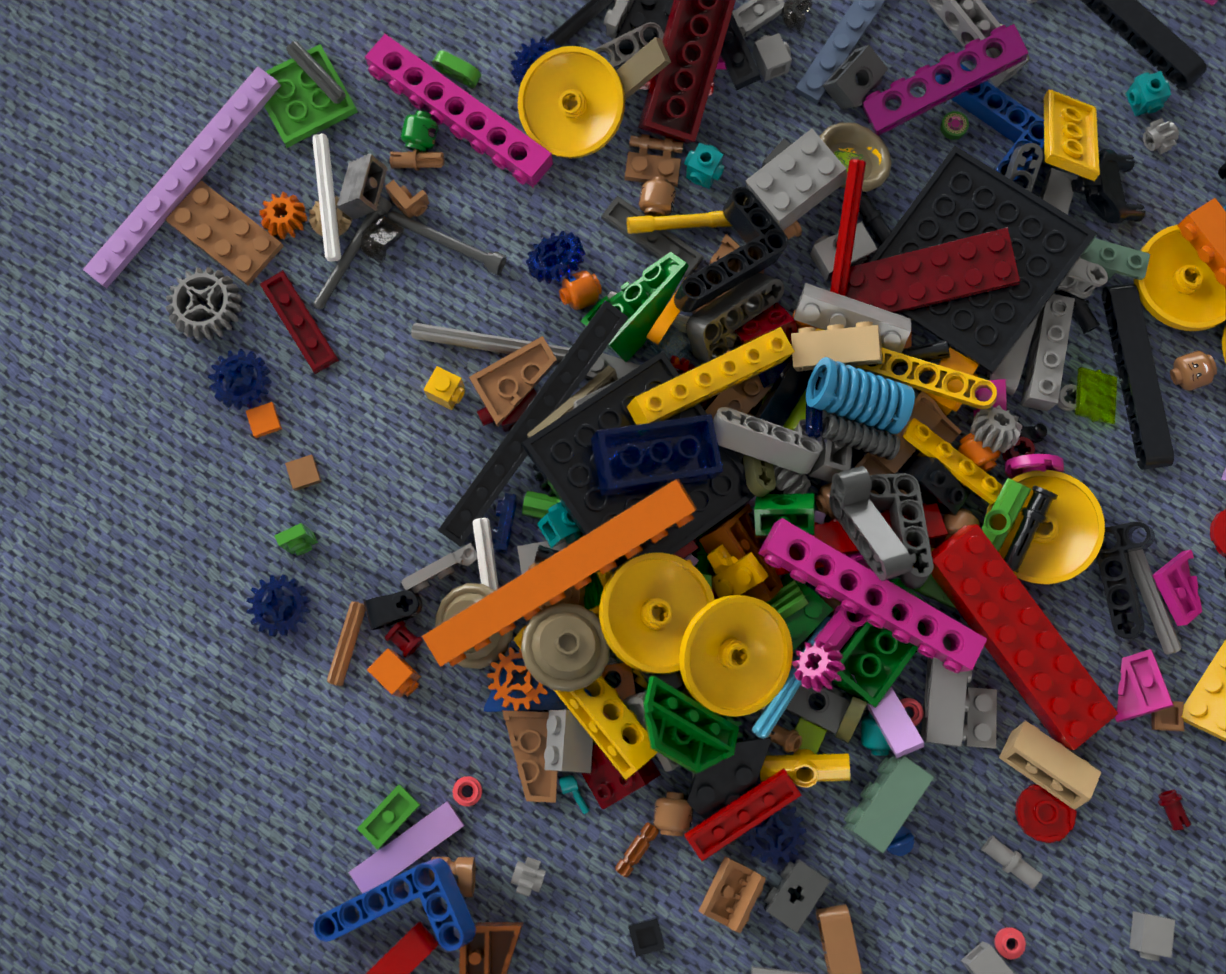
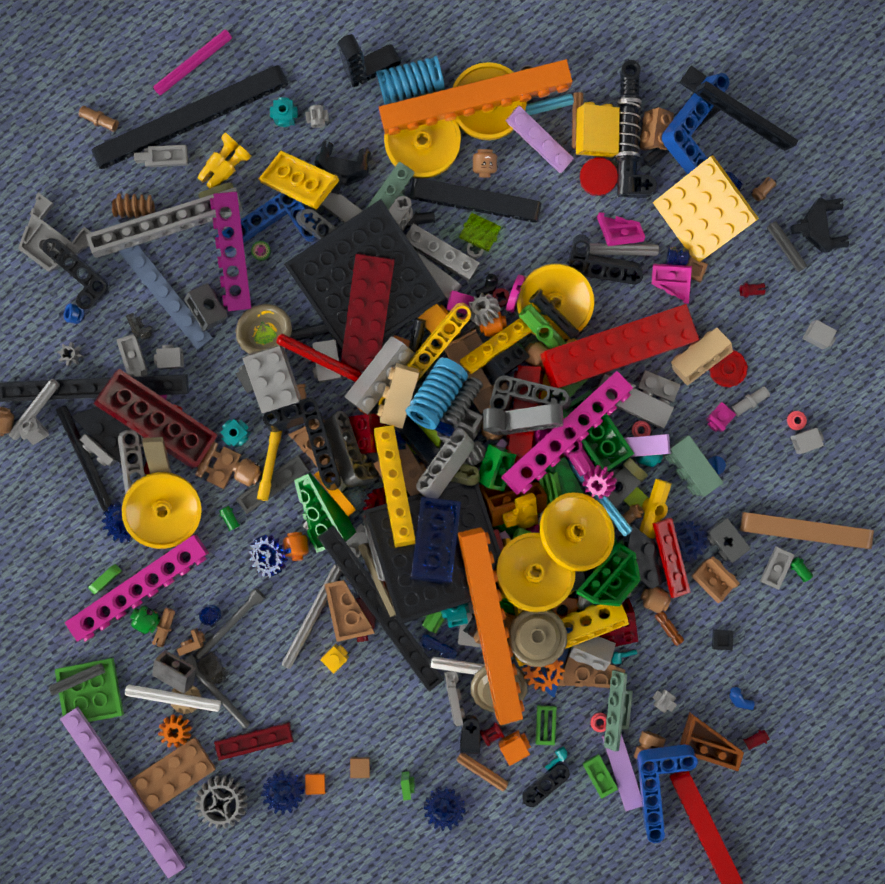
camera: 75 degrees left, 10 degrees up
(331, 735) = (560, 780): none -> black beam
(404, 749) = (561, 756): none -> teal hand
(415, 720) = (538, 724): none -> bright green tile
(449, 205) = (207, 617): none -> clear blue wheel
(493, 811) = (618, 710): none -> sand green bracket
(588, 195) = (229, 518): none -> green pin
(970, 824) = (720, 417): none -> dark pink bracket
(1042, 37) = (217, 164): none -> yellow piece
(1177, 681) = (677, 256): none -> clear blue wheel

